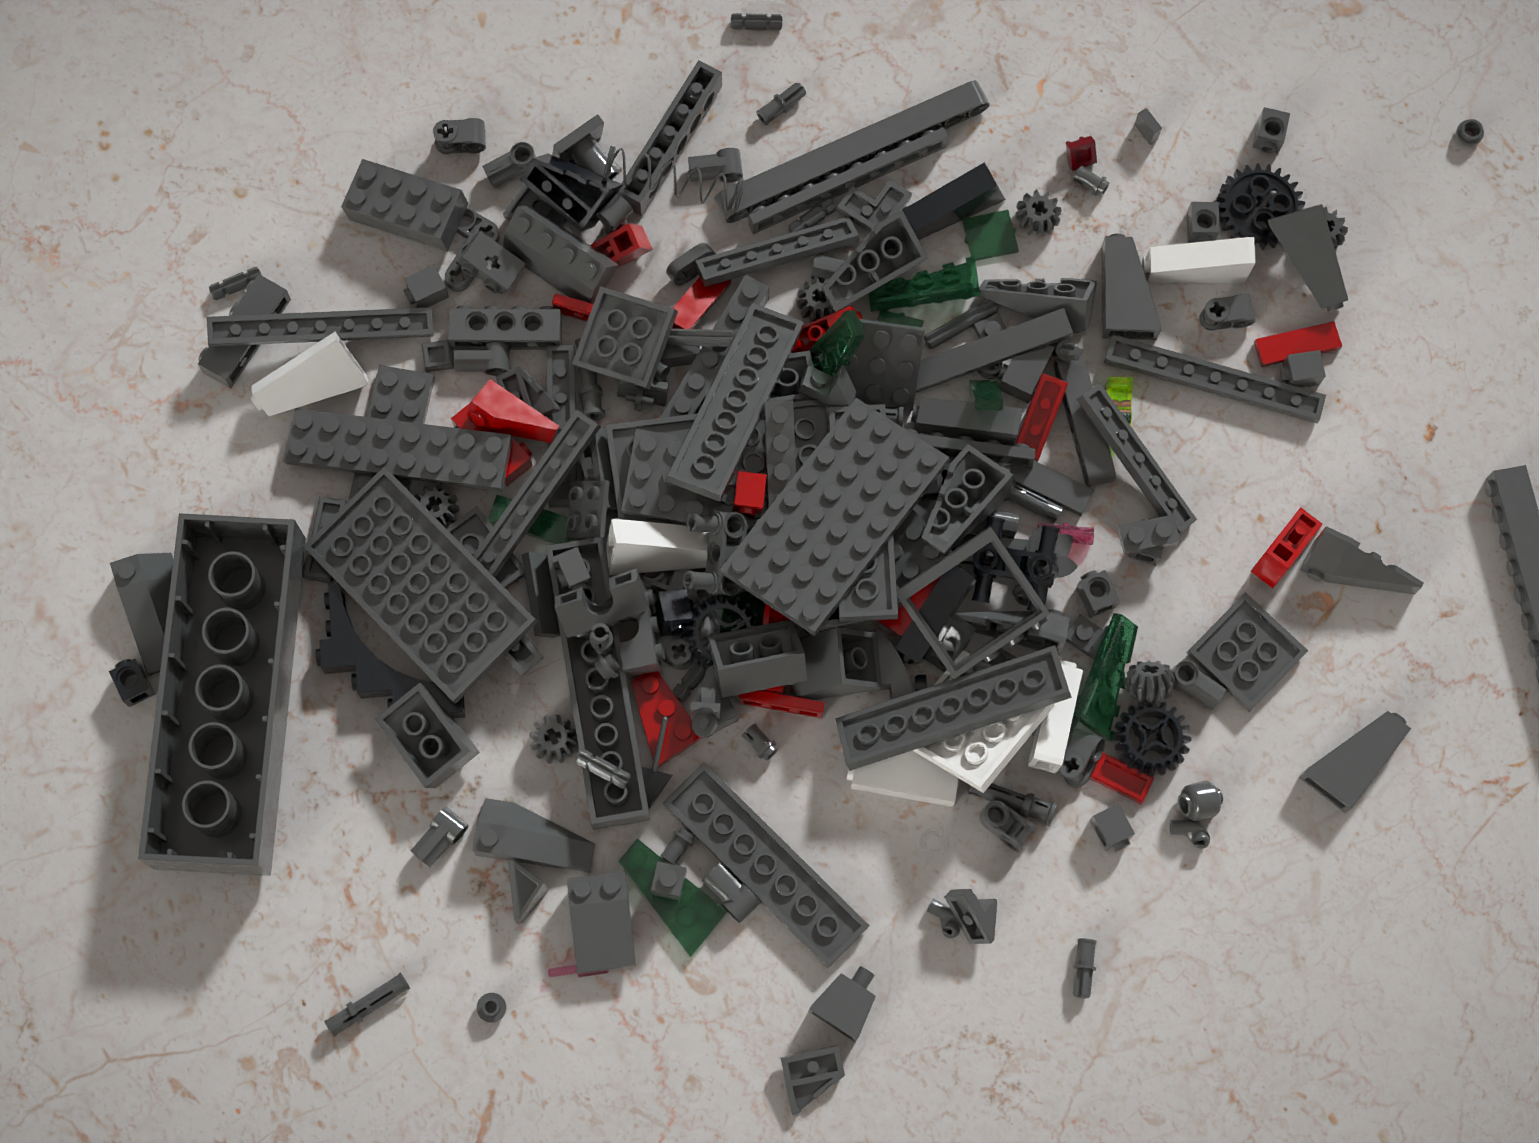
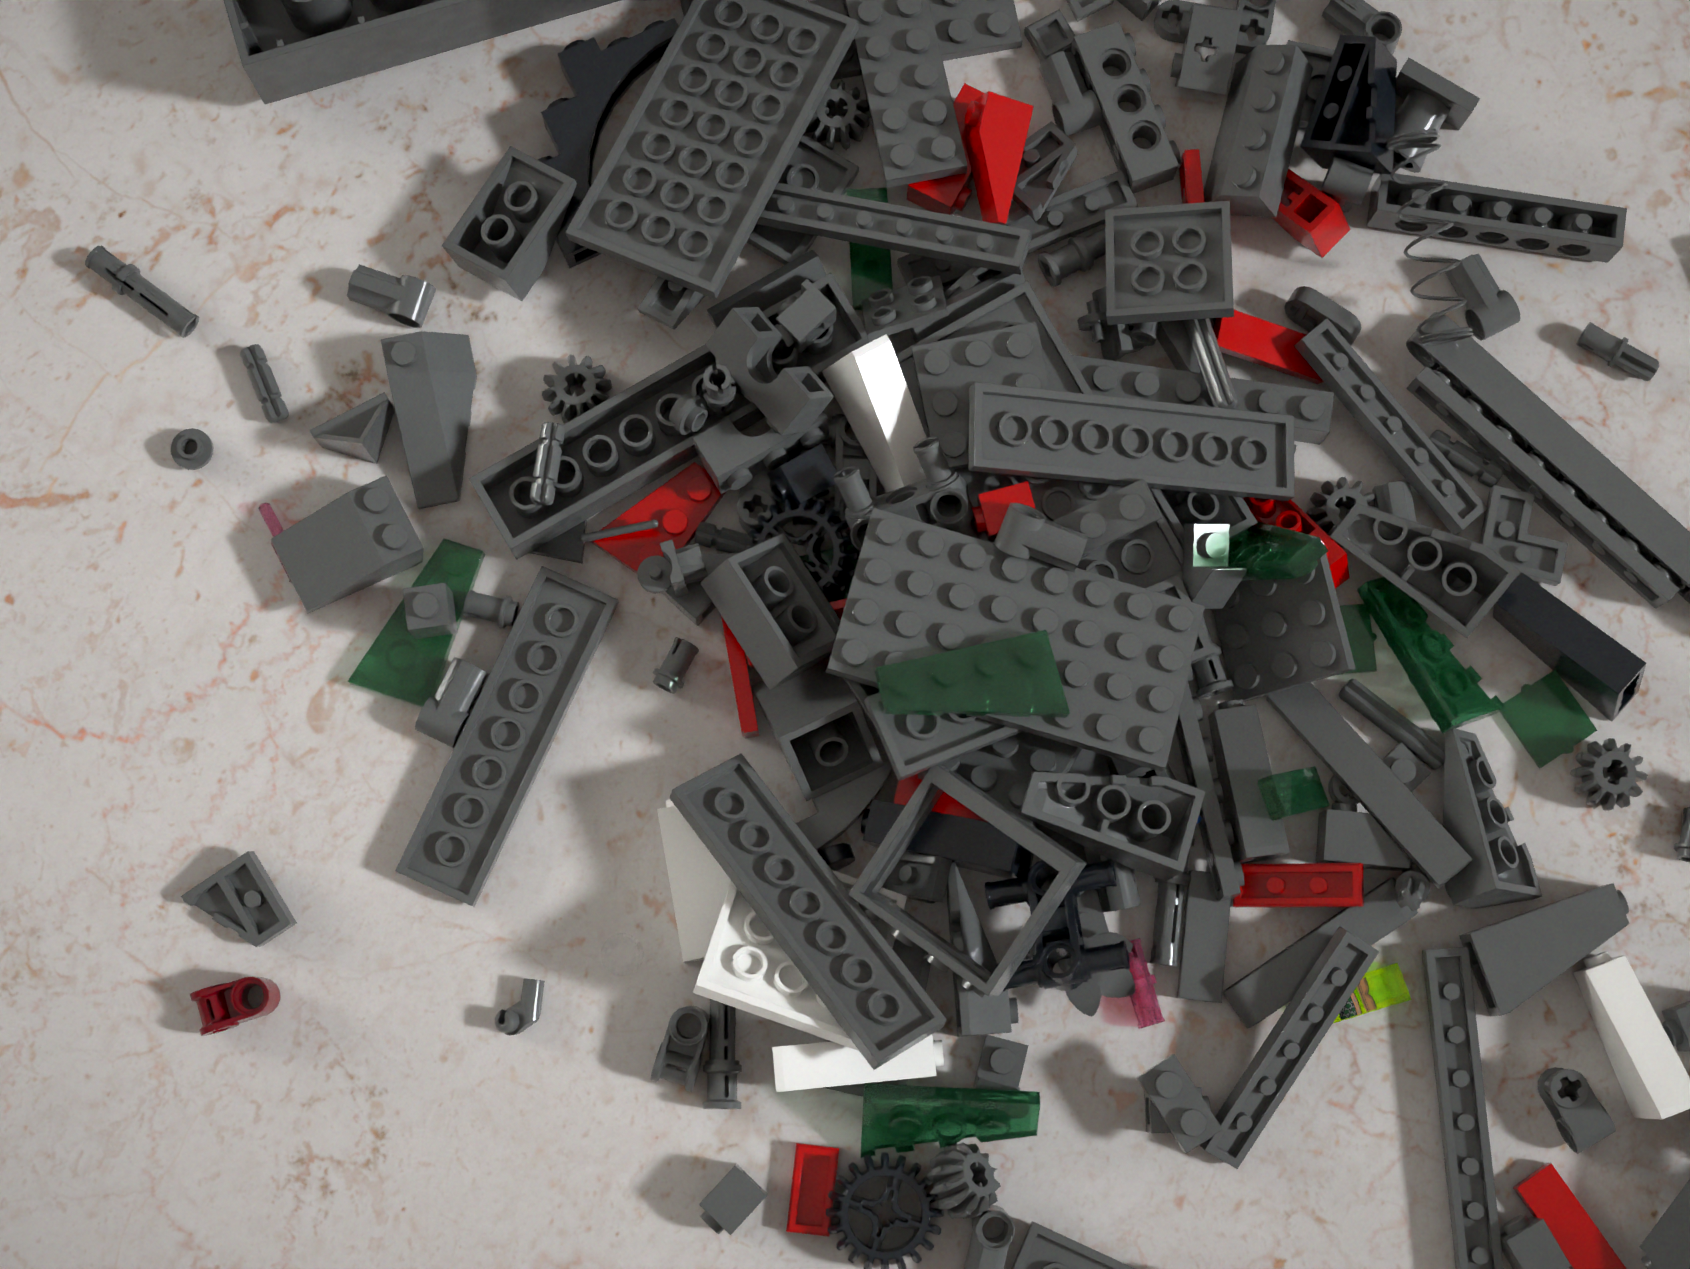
camera: 70 degrees right, 5 degrees up
(464, 944) = (264, 383): none -> dark grey axle
(774, 480) = (1029, 534): none -> dark grey piece
(846, 1003) = (353, 914): dark grey torso -> none
(858, 538) = (988, 678): none -> clear green wing
(876, 1105) = (228, 1004): none -> dark red piece
(974, 915) = (536, 1047): dark grey slope -> none
(1083, 753) = (822, 1120): dark grey piece -> none
(1084, 968) = (520, 1228): dark grey axle -> none
(1093, 604) = (1049, 1064): dark grey brick -> none

